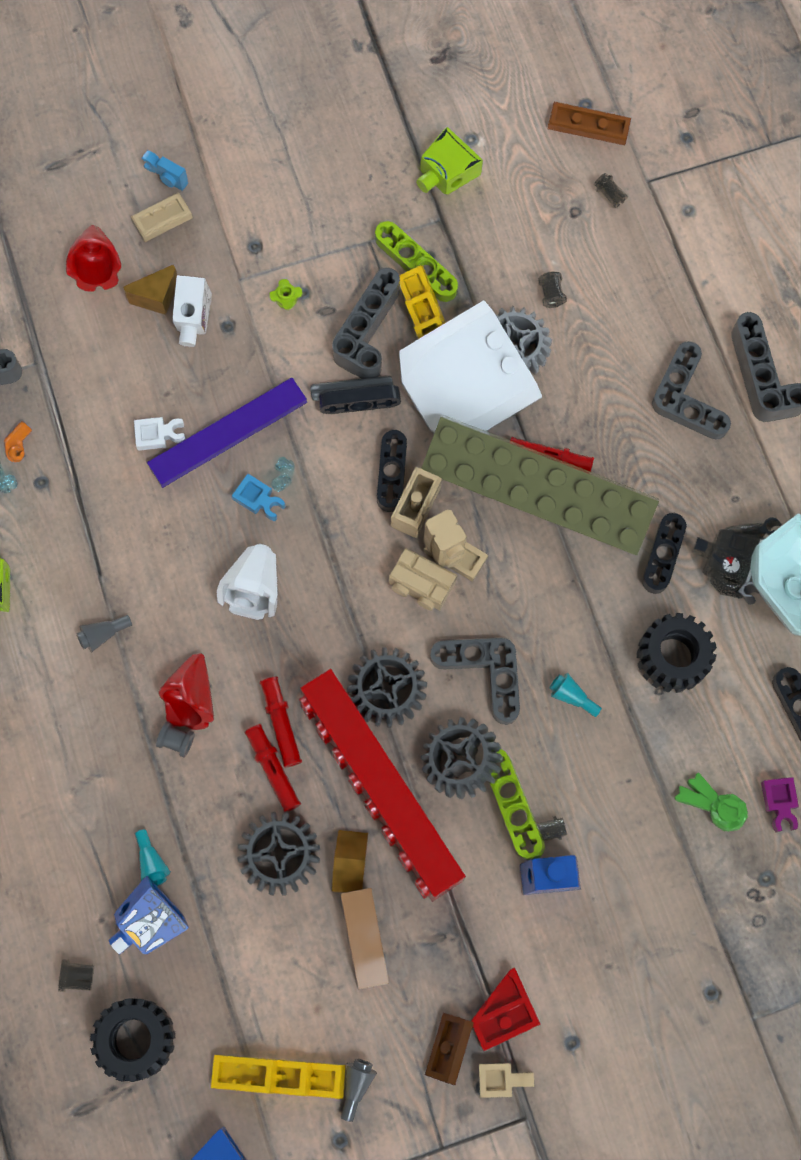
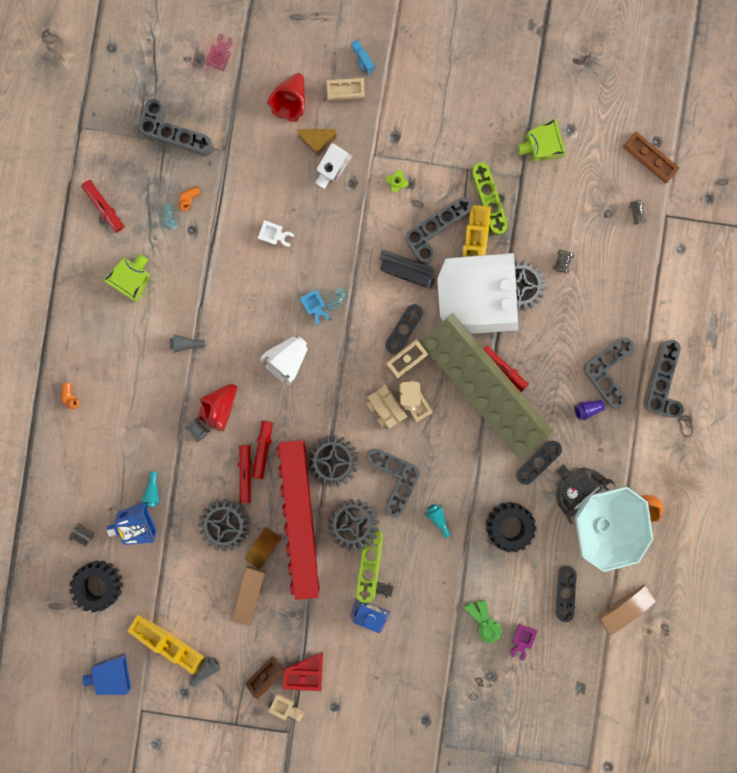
camera: 25 degrees right, 15 degrees up
(227, 432) = (317, 254): dark purple tile -> none
(688, 453) = (586, 410): none -> dark purple cone

